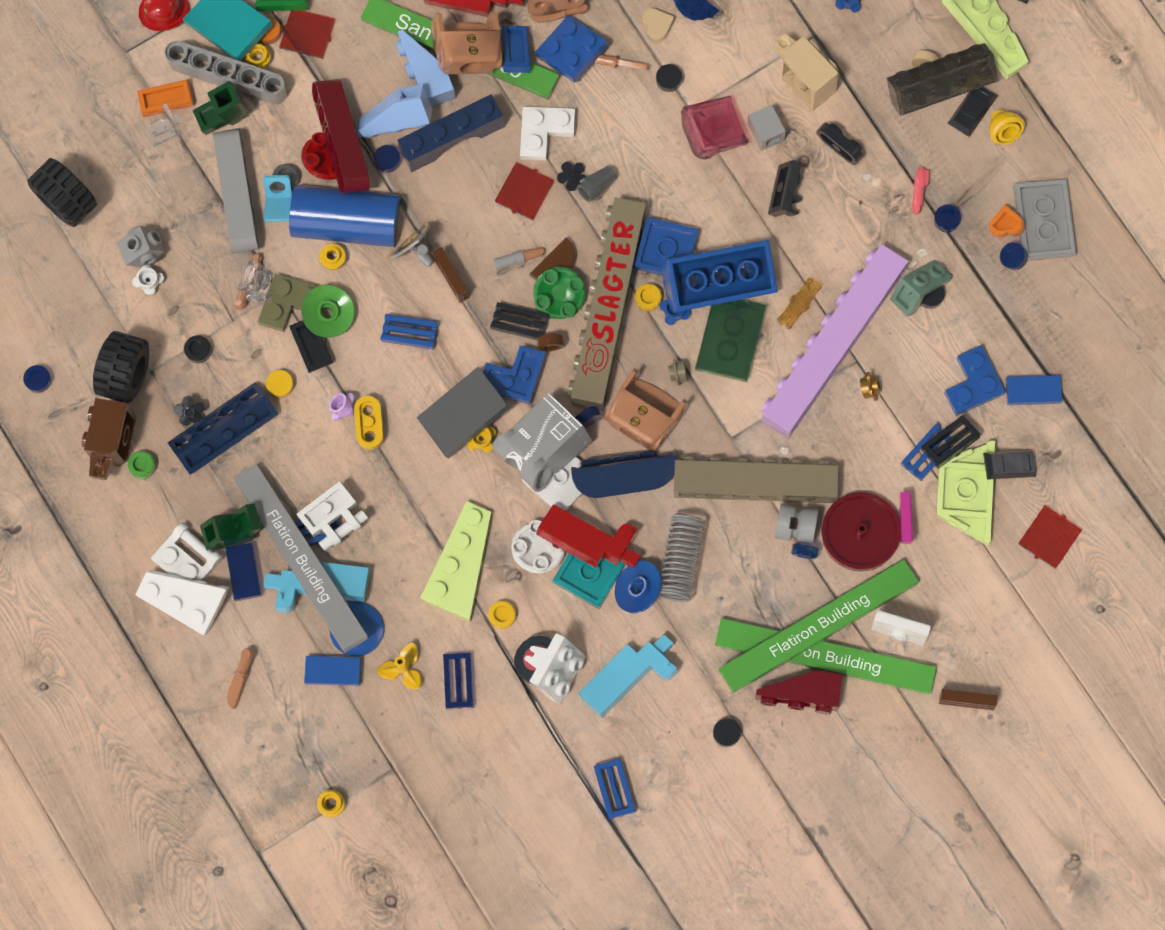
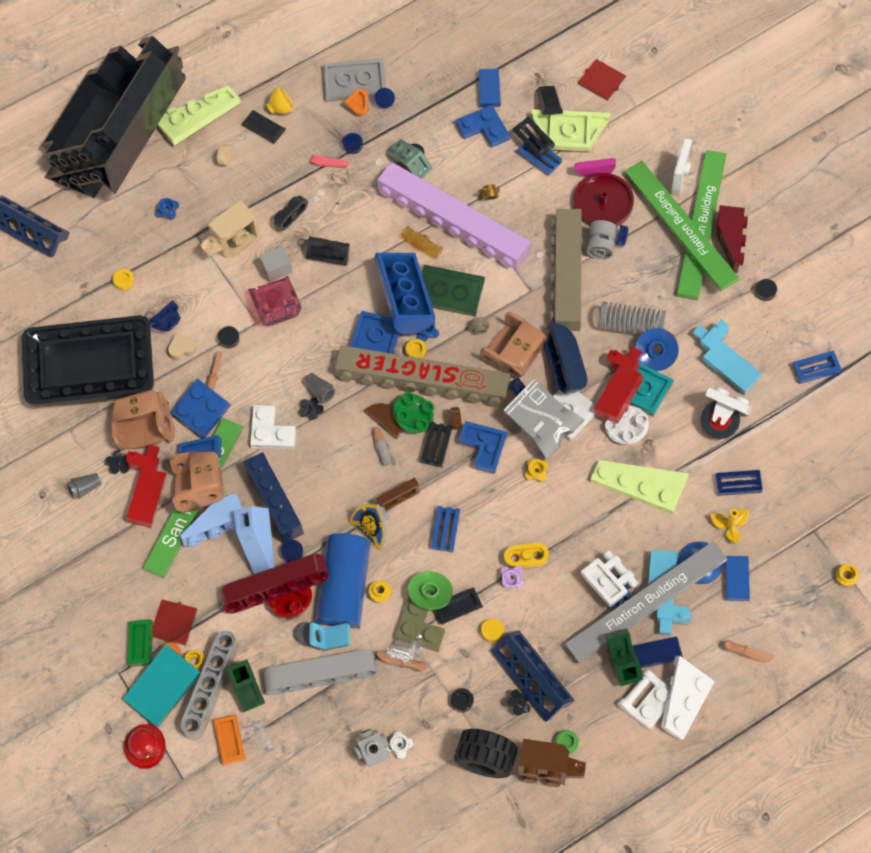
camera: 95 degrees left, 10 degrees down
(37, 379) = (490, 837): clear blue tile -> none
(62, 192) = (323, 814): black tyre -> none
(463, 412) = (518, 480): dark grey tile -> none
(502, 615) = (682, 451): yellow tile -> none
(524, 191) = (323, 444): clear red piece -> none
(942, 79) = (241, 140): clear smoke brick -> none
(968, 699) = (730, 129): reddish brown tile -> none

